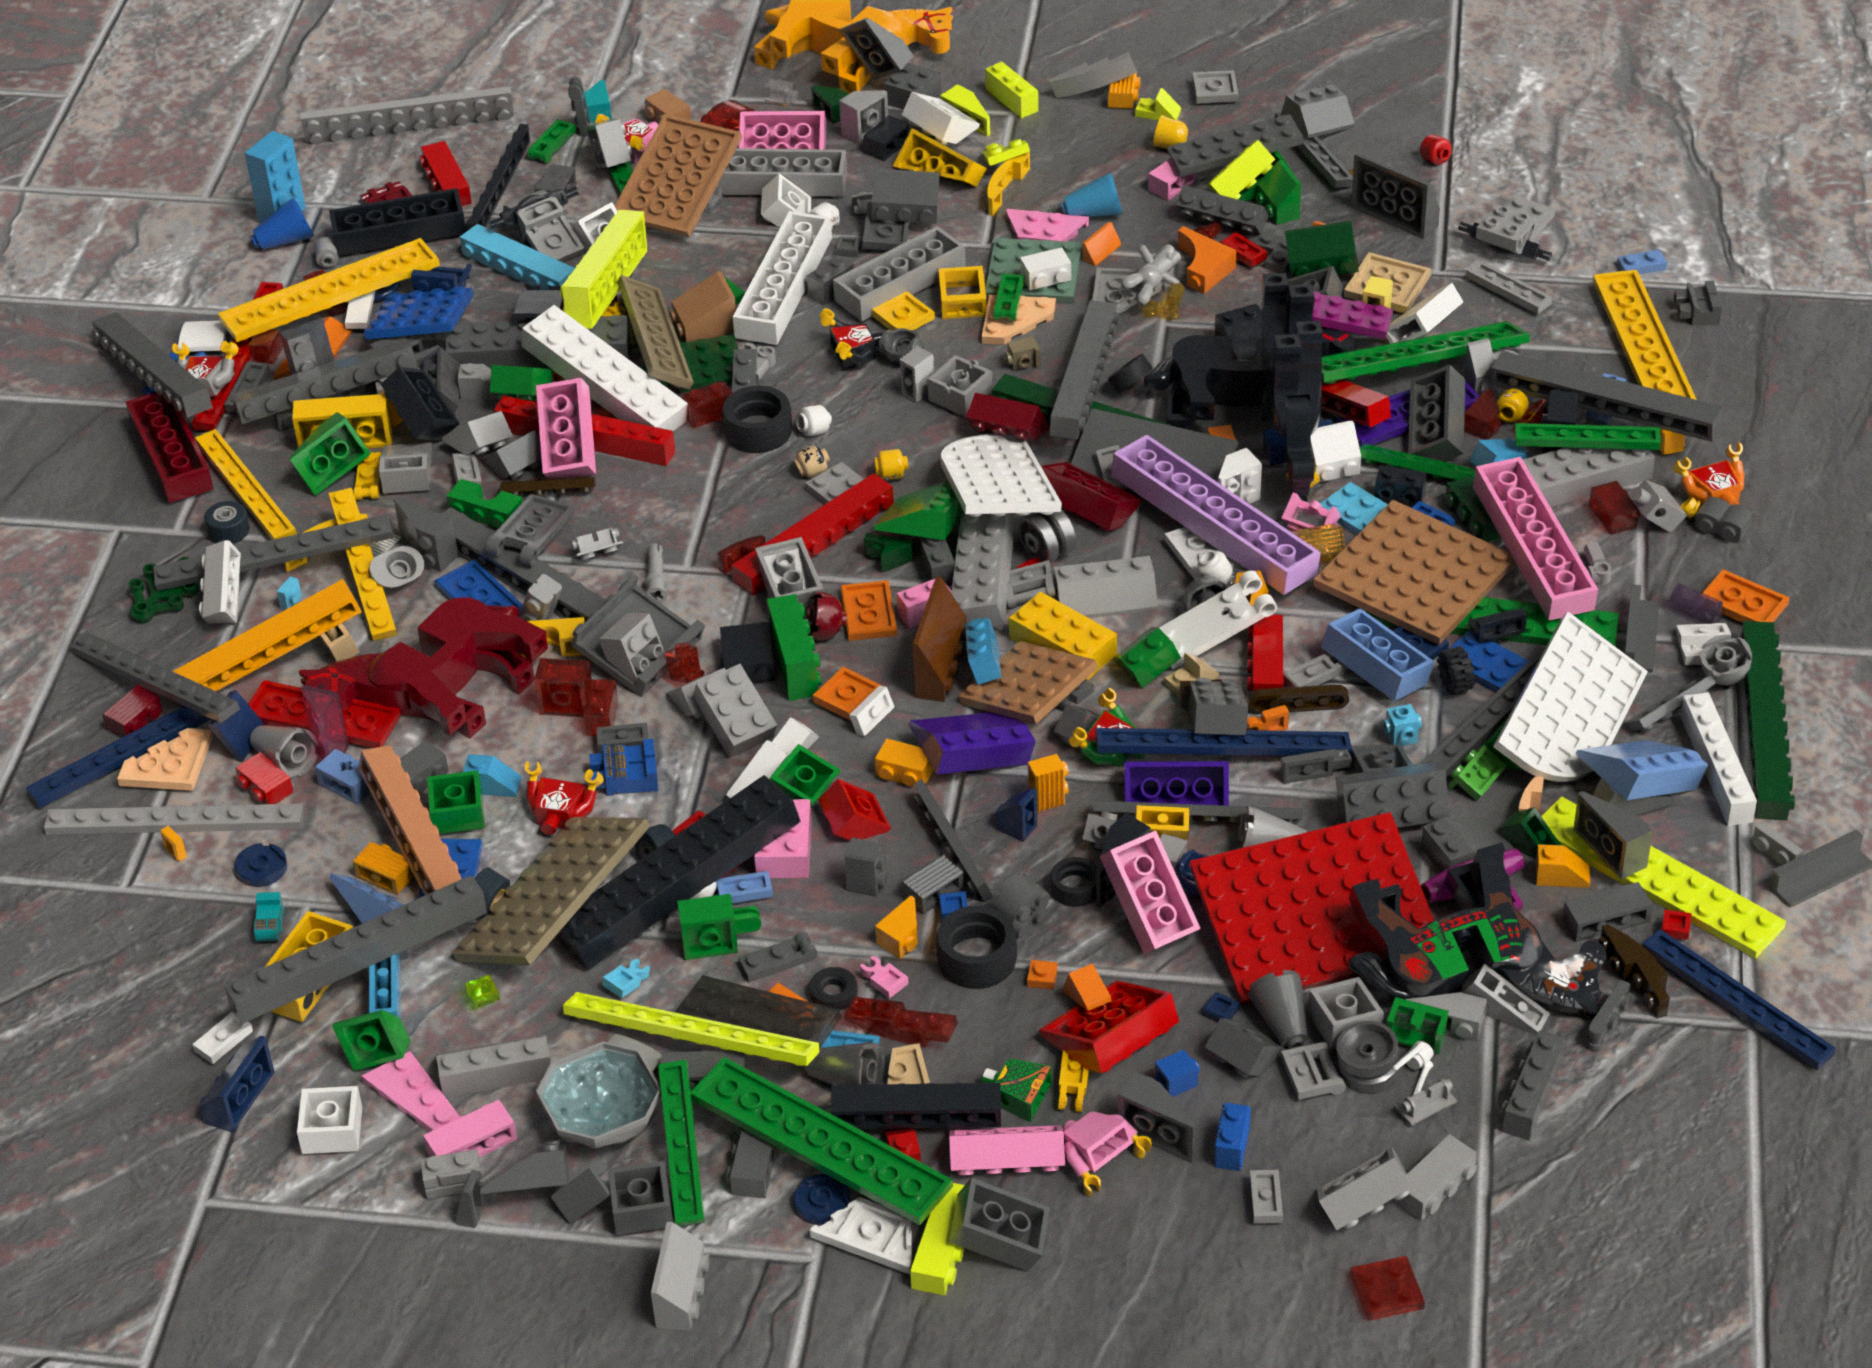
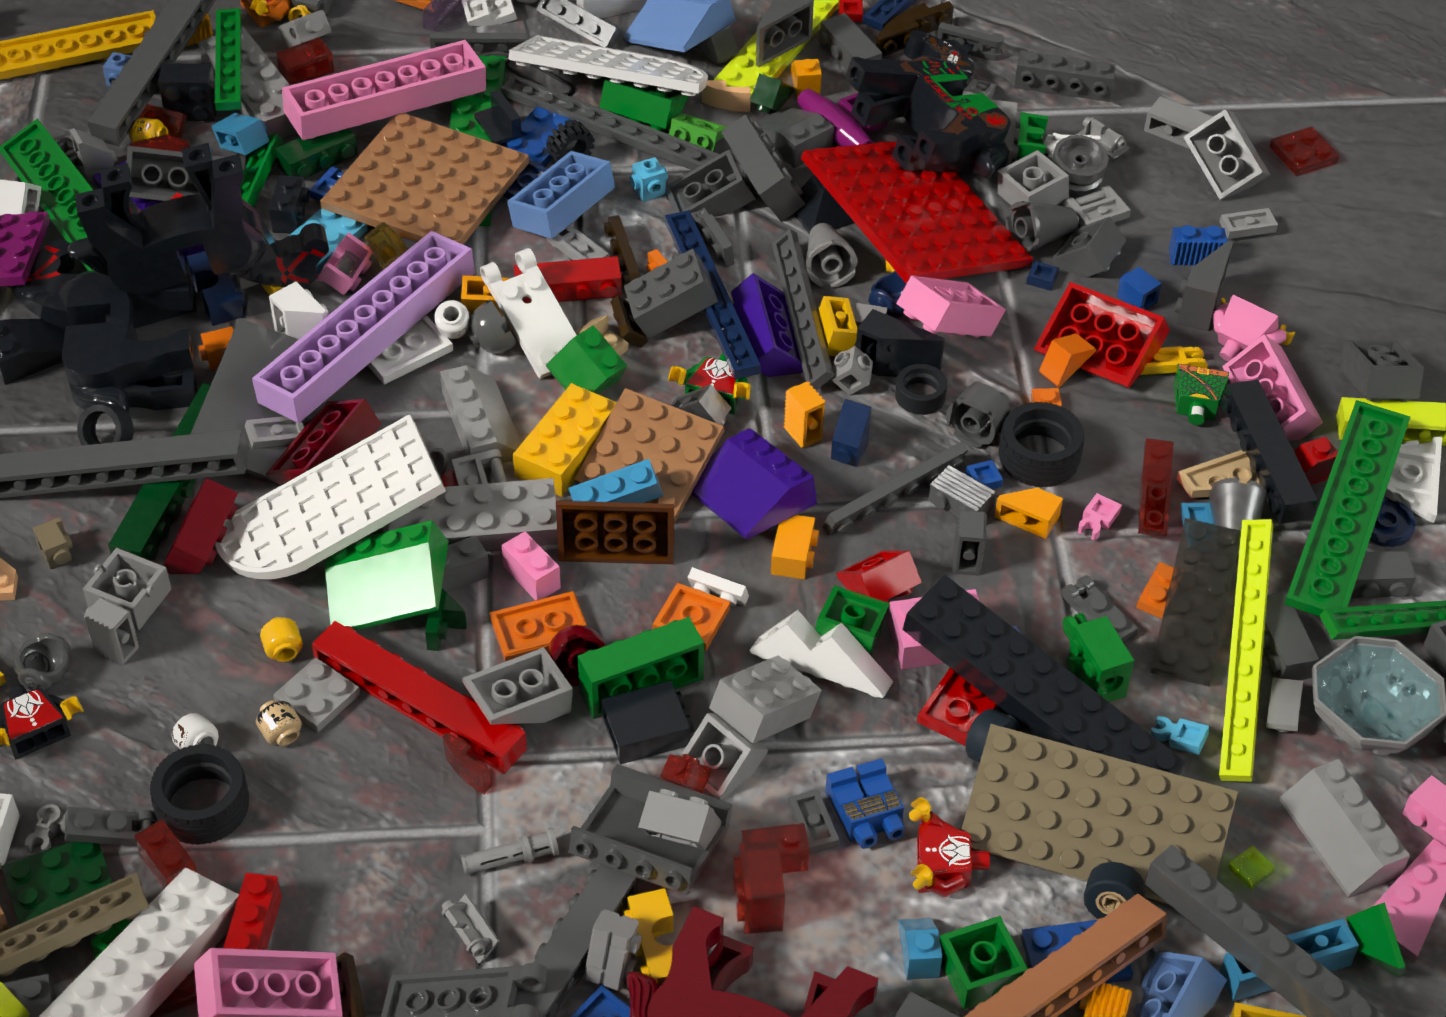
camera: 105 degrees left, 5 degrees up
(829, 976) = (1124, 570): black tyre -> none

